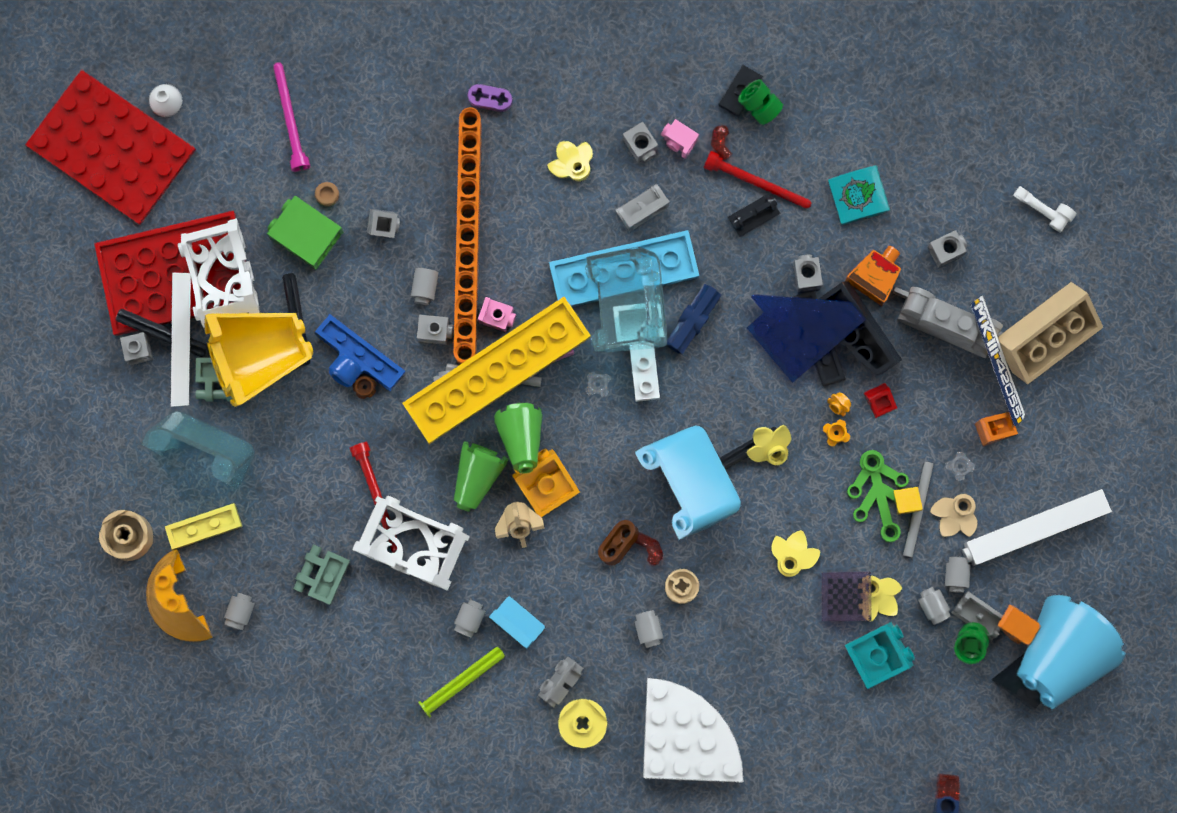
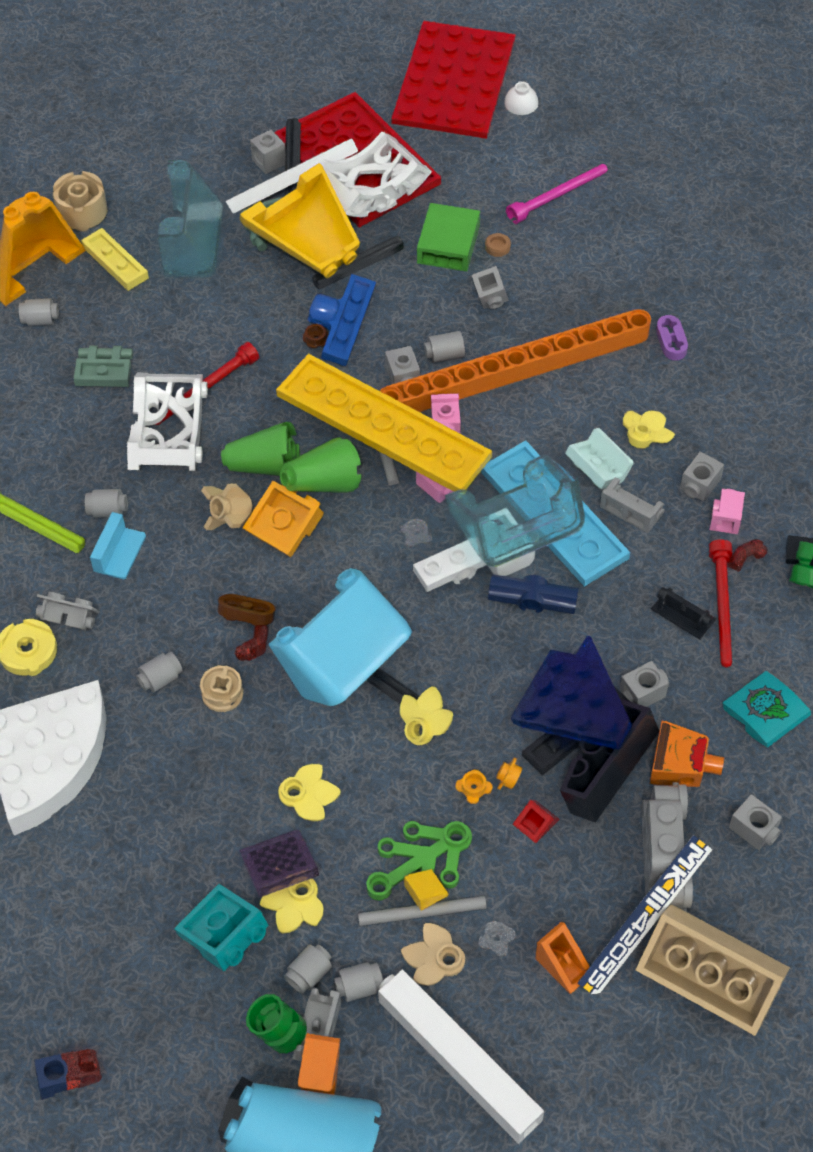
camera: 65 degrees right, 25 degrees down
(591, 213) = (600, 459): none -> light aqua bracket

